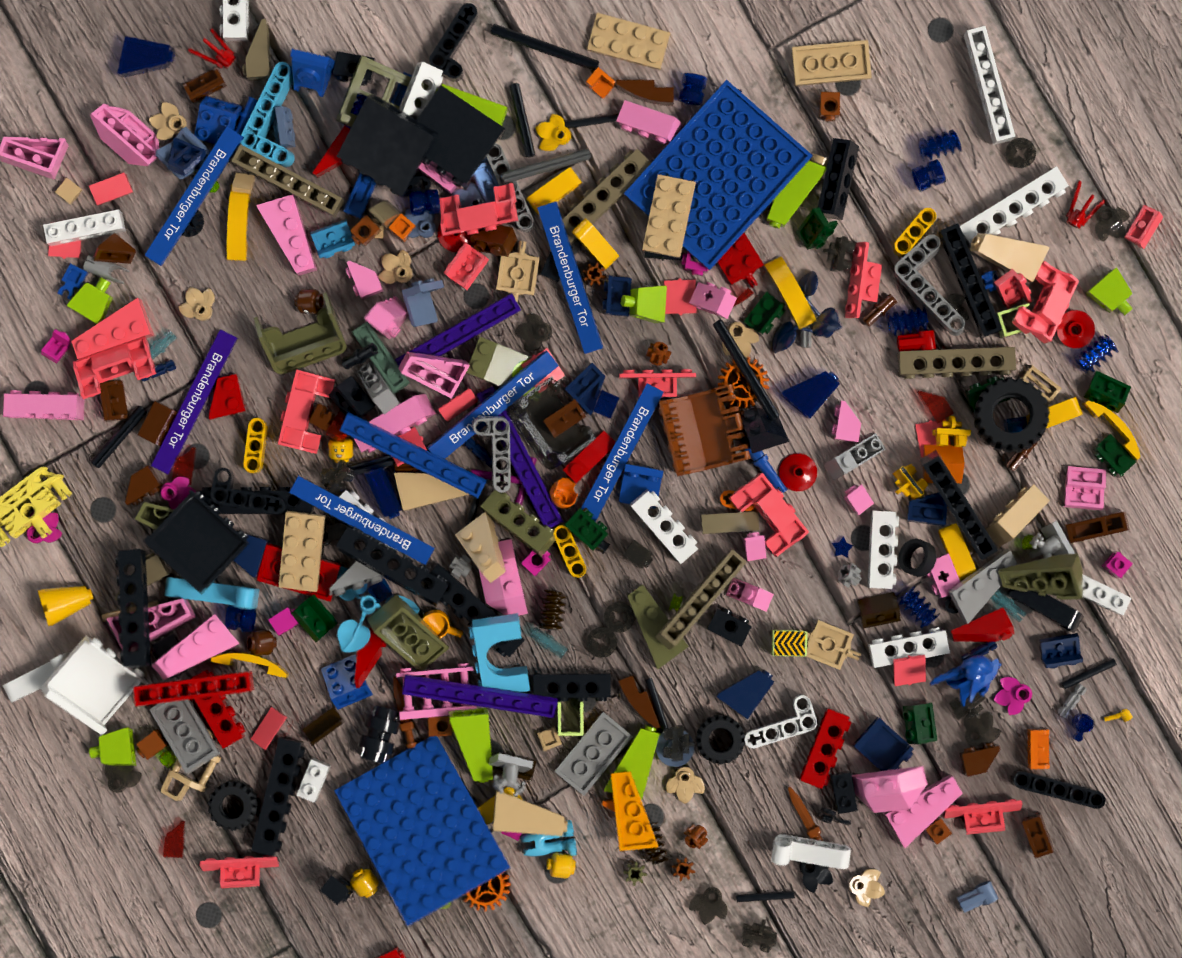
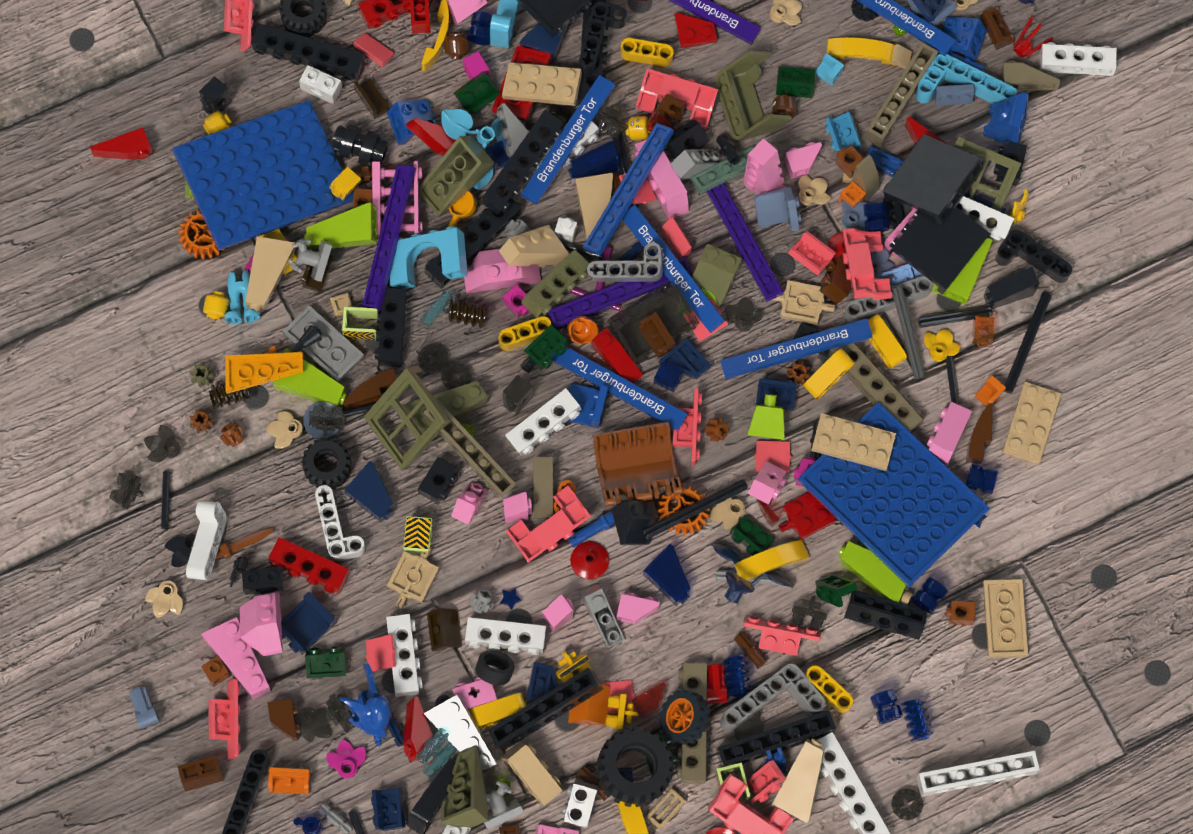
camera: 85 degrees right, 15 degrees down
(262, 257) = (829, 69): none -> medium azure panel
(278, 290) = (795, 82): none -> dark green bracket
(288, 229) = (852, 94): bright pink wedge -> none
(408, 59) = (1018, 210): none -> yellow plate
(425, 746) = (344, 183): none -> yellow brick
(436, 372) = (709, 214): bright pink wedge -> none
(456, 516) = (566, 227): none -> white brick
(492, 63) = (1012, 288): none -> black slope
(530, 85) = (986, 324): none -> clear orange brick
(592, 768) = (310, 336): none -> black cone
(656, 681) = (407, 378): none -> olive window
(814, 136) = (928, 597): none -> clear blue wheel
(918, 607) = (443, 666): clear blue piece -> none
(958, 358) = (696, 717): none -> black wheel
(1001, 612) = (432, 745): none -> clear light blue pin
(1044, 466) = (584, 804): none -> brick

